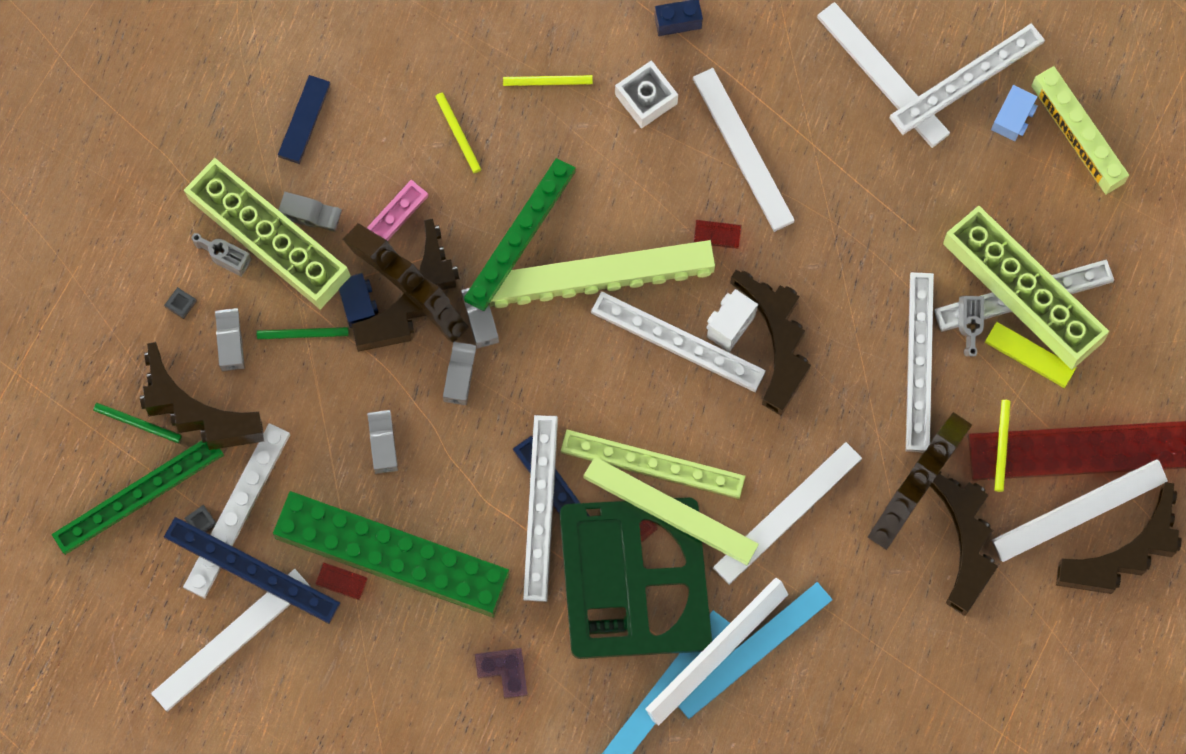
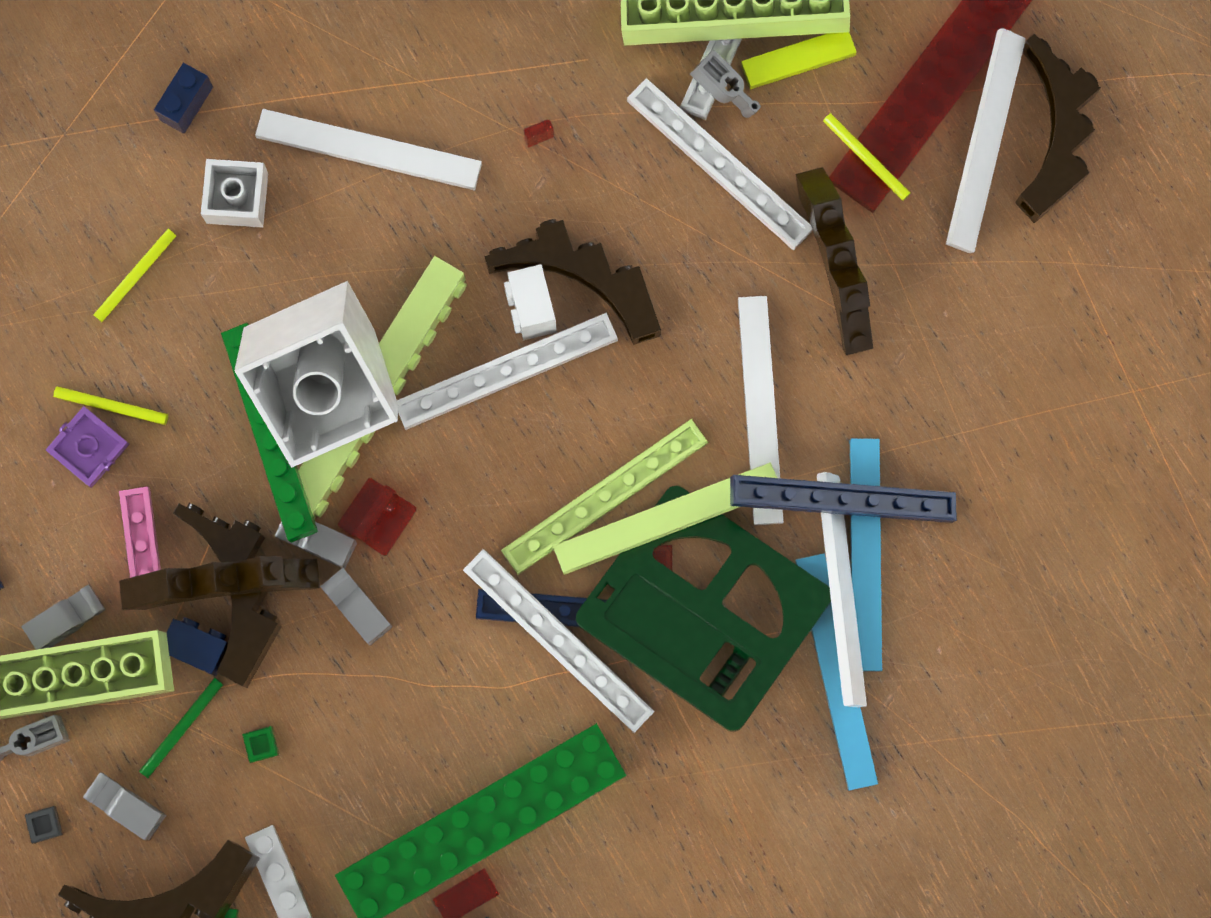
camera: 50 degrees left, 5 degrees up
(331, 387) = (260, 744): none -> green tile
(382, 442) = (360, 739): light grey piece -> none
(422, 140) = (87, 447): none -> medium lavender plate
(507, 665) = (689, 801): plate -> none
(524, 340) = (377, 516): none -> clear red bracket
(576, 230) = (317, 374): none -> white slope
(719, 233) = (432, 242): clear red tile -> none
(773, 605) = (842, 498): none -> dark blue tile
(841, 238) = (538, 133): none -> clear red tile
(972, 535) = (960, 284): dark brown arch -> none

